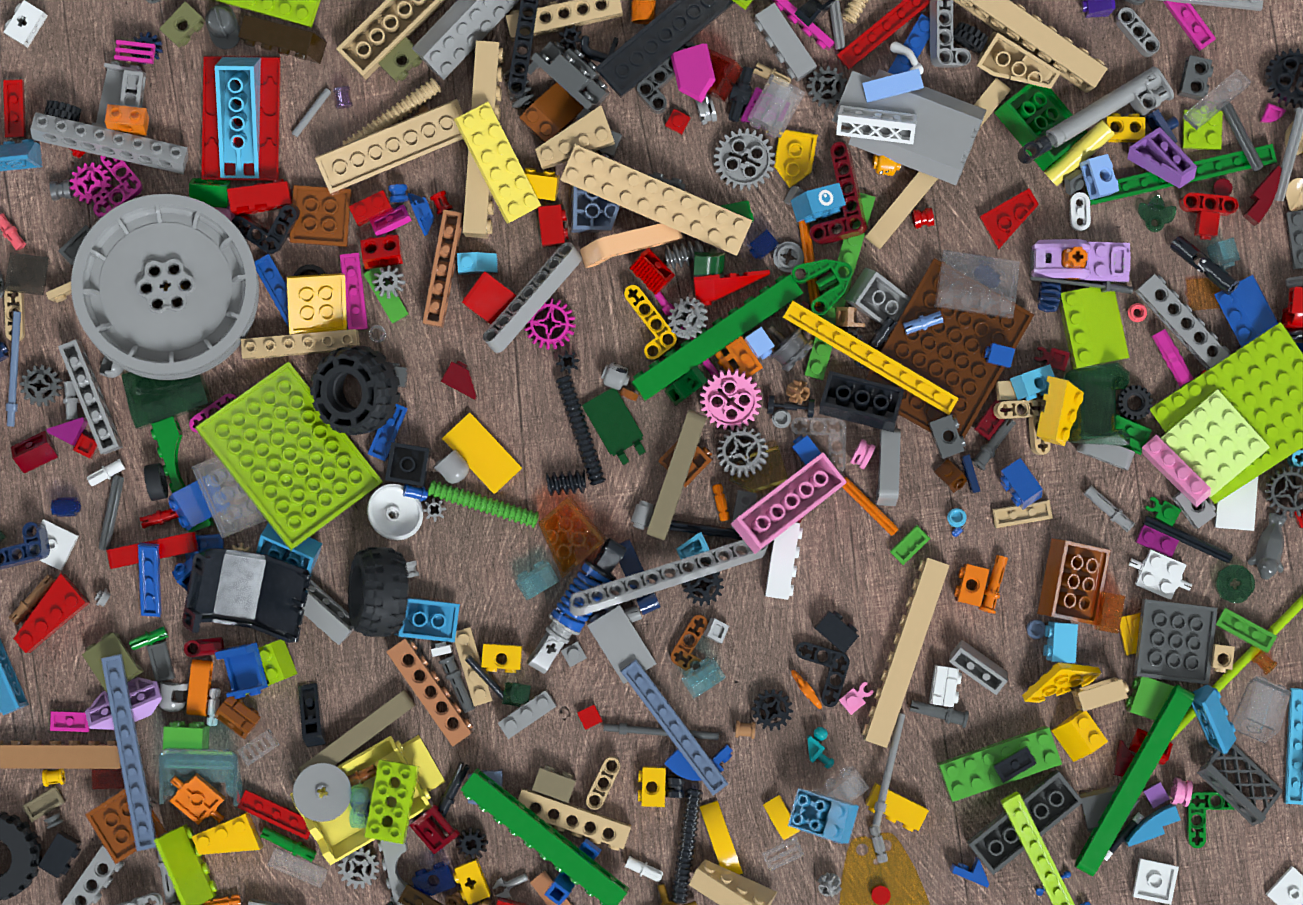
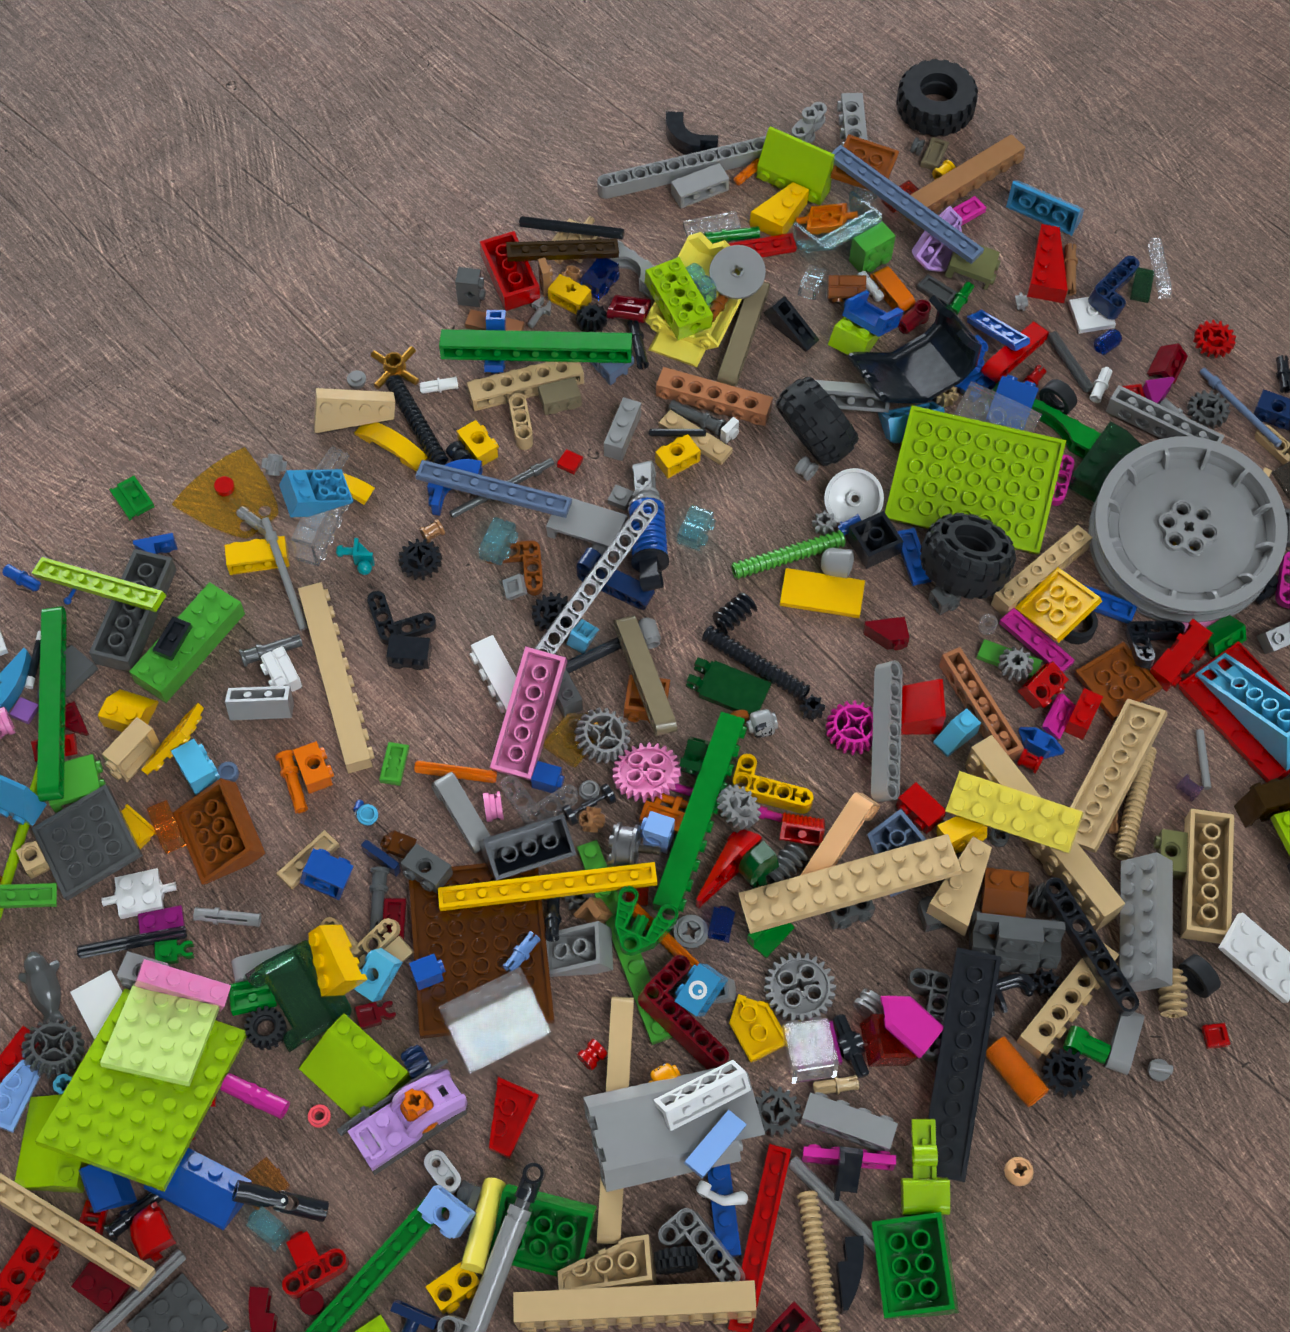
camera: 145 degrees right, 25 degrees down
(60, 854) = (892, 128): black brick -> none
(167, 690) = (908, 268): light grey helmet -> none
(364, 874) = (663, 249): light grey gear -> none
(398, 193) = (1072, 742): blue wheel -> none
(430, 620) = (761, 441): dark azure slope -> none
(516, 694) = (642, 433): clear green window -> none
(570, 535) = (696, 576): clear orange wedge -> none
(678, 121) = (886, 980): red plate -> none
(721, 502) = (589, 688): orange axle -> none
(806, 689) = (402, 593): orange piece -> none
(853, 699) = (354, 613): bright pink plate -> none
(1156, 211) = (363, 1231): clear green plate -> none
(1163, 158) = (394, 1278): medium lavender wedge -> none
(1173, 321) = (277, 1130): light grey brick -> none
(1242, 575) = (61, 944): clear green plate -> none

